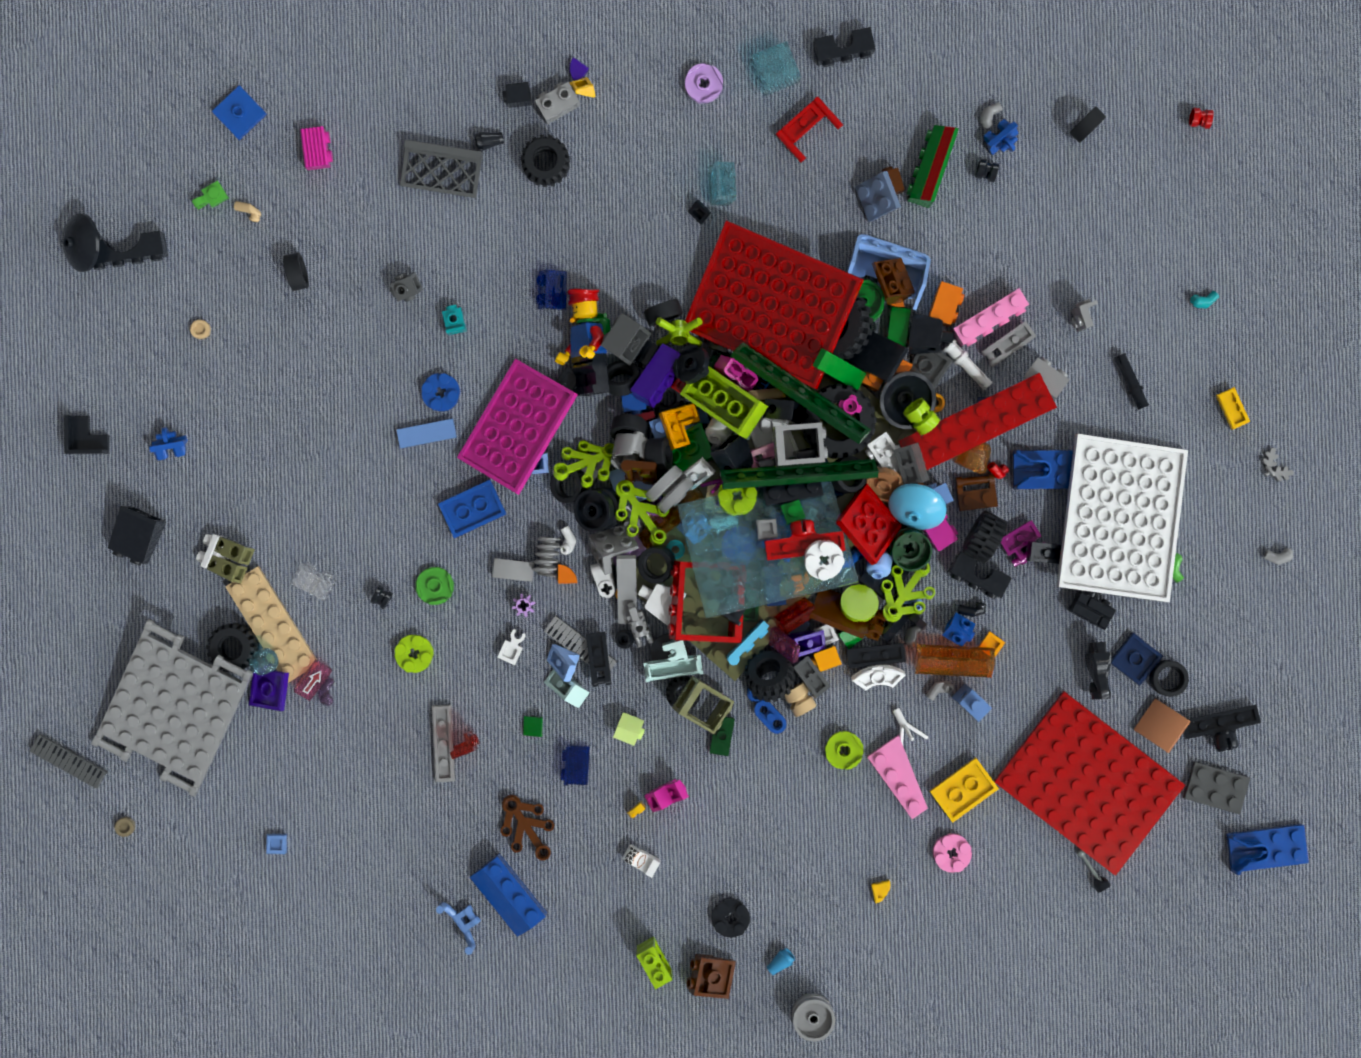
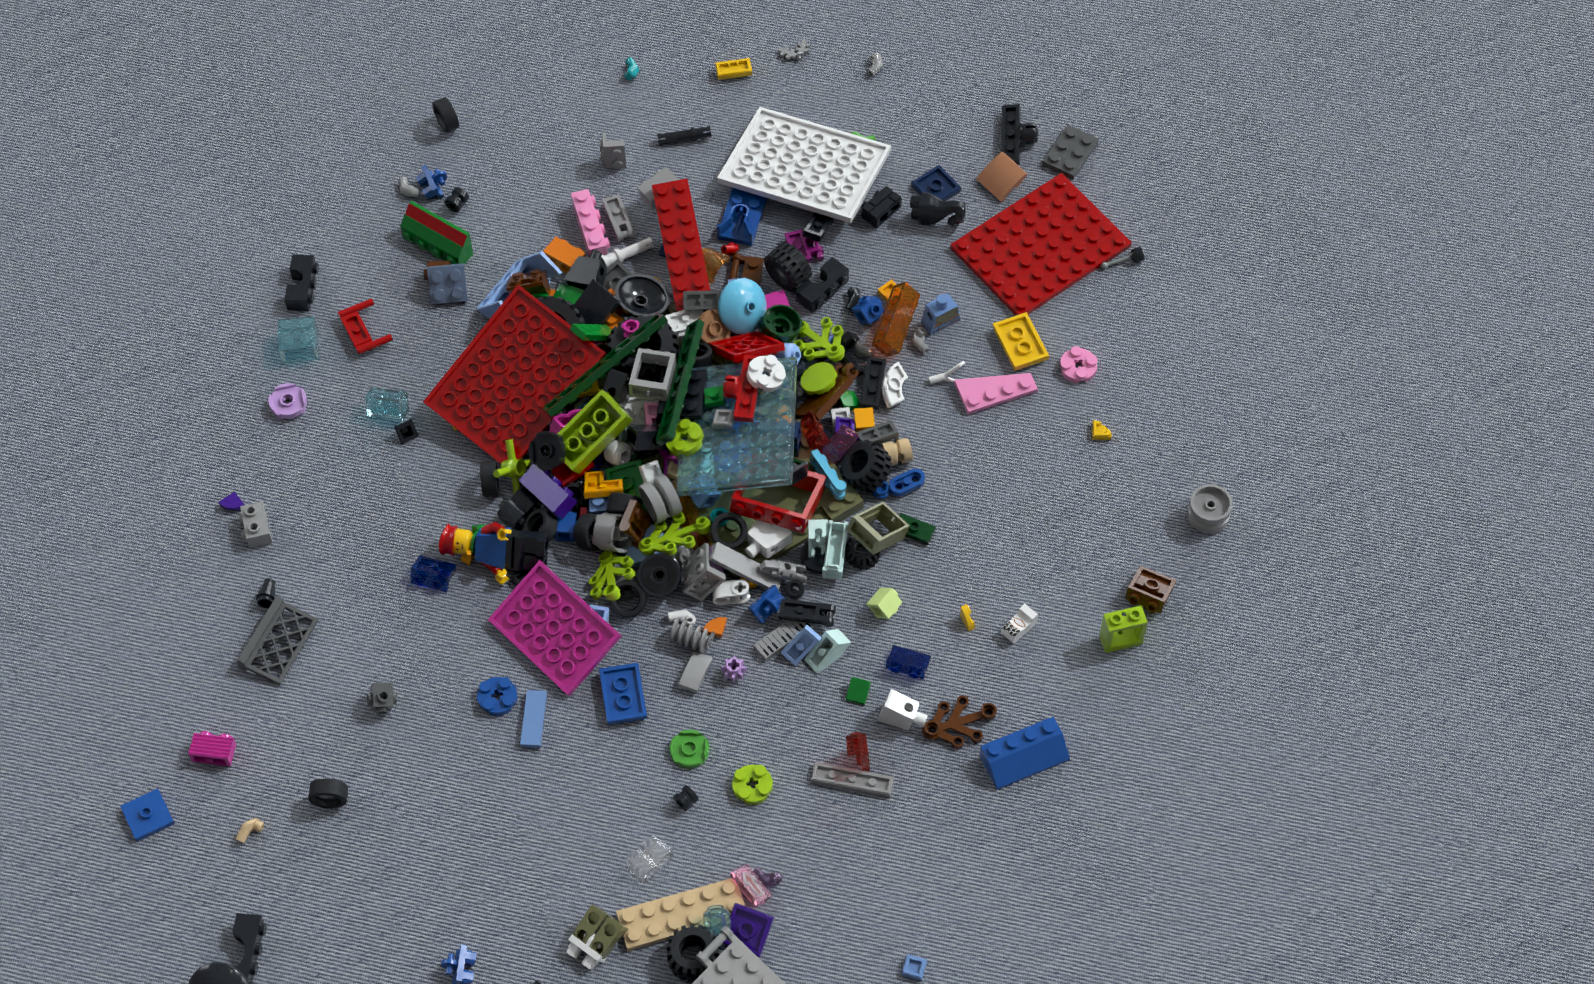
camera: 75 degrees left, 30 degrees down
(200, 329) = (352, 908): tan tile -> none
(213, 195) = (220, 860): bright green plate -> none
(454, 327) = (430, 665): teal brick -> none
(460, 922) = (1043, 807): medium blue piece -> none
(511, 650) = (774, 692): white plate -> none
(517, 94) = (234, 556): black brick -> none
(517, 773) = (901, 711): none -> white torso
(540, 145) = (303, 533): black tyre -> none
(583, 87) = (251, 494): yellow slope -> none
(598, 618) = (766, 604): none -> blue hips
(625, 338) = (502, 505): dark grey brick -> none
(666, 795) = (958, 583): dark pink brick -> none
(723, 909) = (1098, 552): black plate -> none
(781, 961) = (1149, 526): dark azure cone -> none
(843, 761) = (952, 438): lime plate -> none
(923, 419) = (660, 285): lime wheel -> none
(1184, 678) = (963, 153): black tyre -> none
(1201, 118) = (472, 37): red wheel -> none
(1267, 848) = (1135, 127): blue plate -> none

